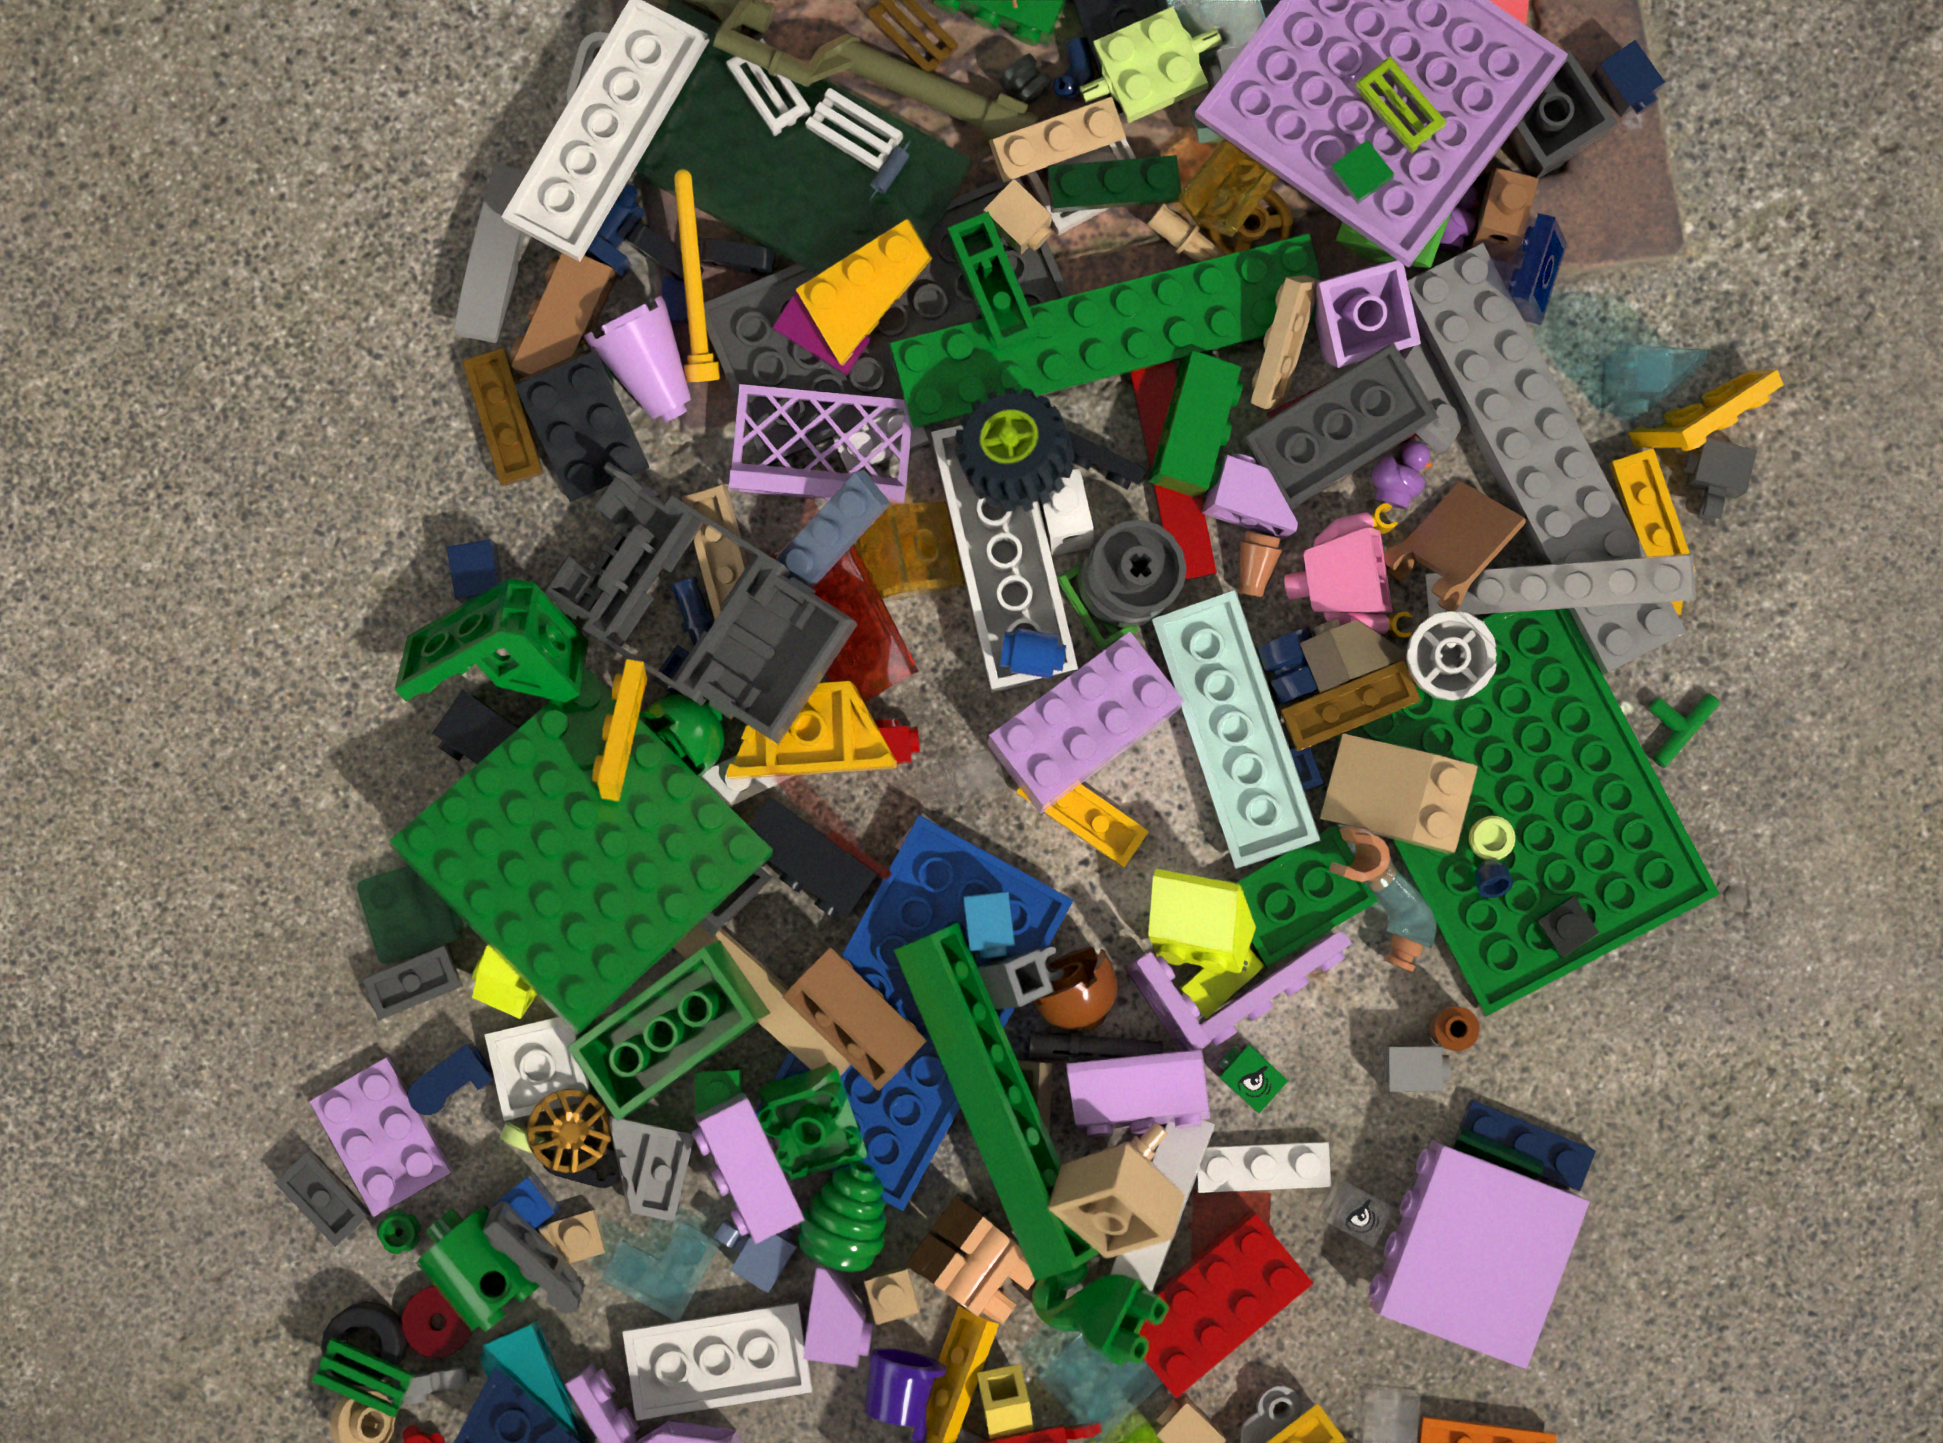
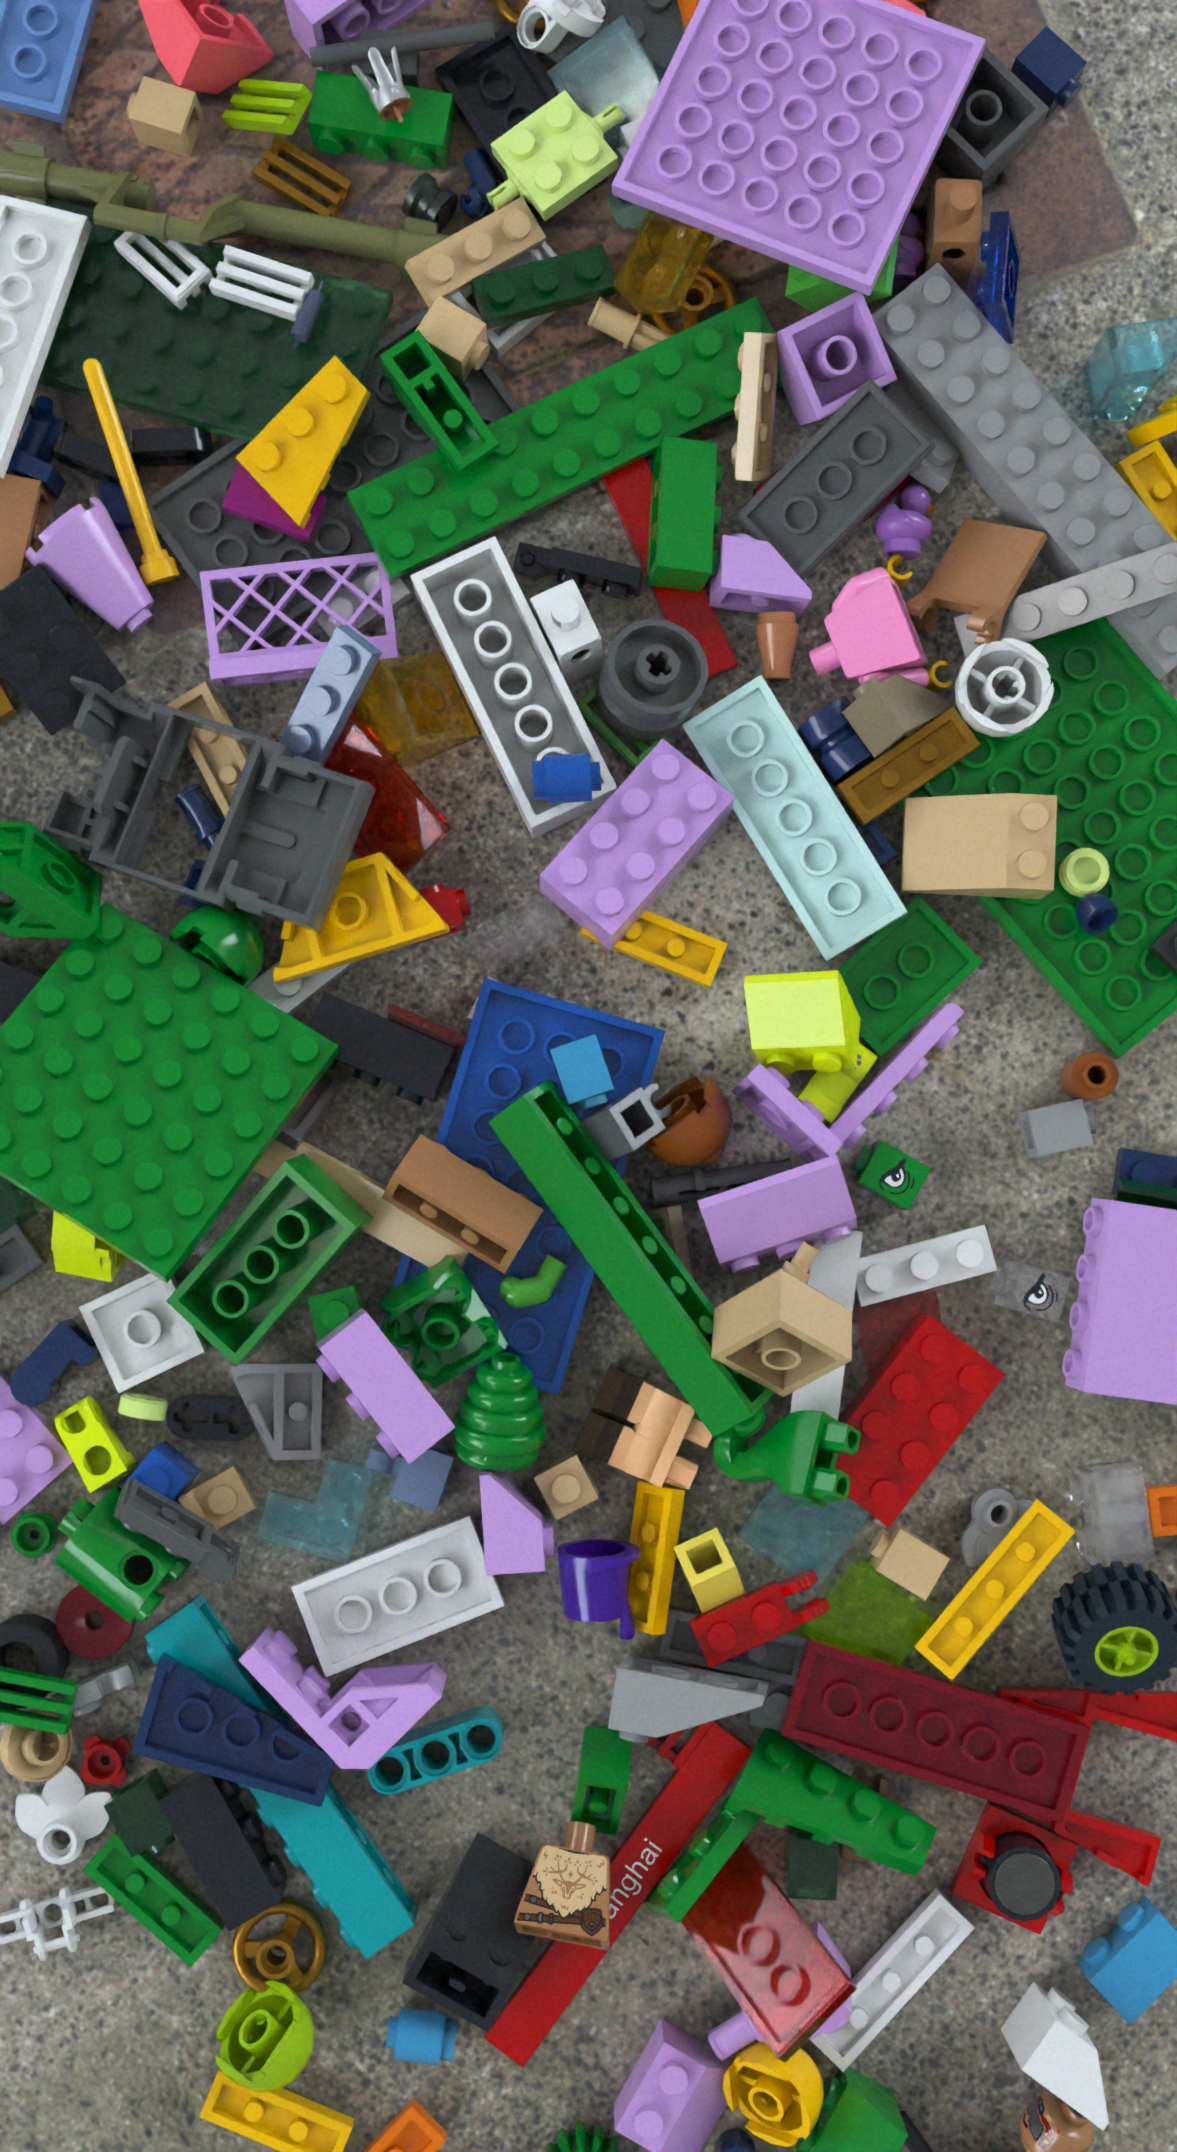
camera: 20 degrees left, 0 degrees up
(471, 1162) = (94, 1445): none -> neon yellow leg
(568, 1130) = (188, 1388): pearl gold wheel -> none
(620, 730) = (148, 953): yellow plate -> none
(902, 1111) = (533, 1289): none -> bright green arm
(1014, 449) = (500, 566): black wheel -> none
(1362, 171) = (800, 203): green tile -> none
(1408, 912) = (1015, 968): piece -> none
(1424, 133) = (817, 132): lime tile -> none

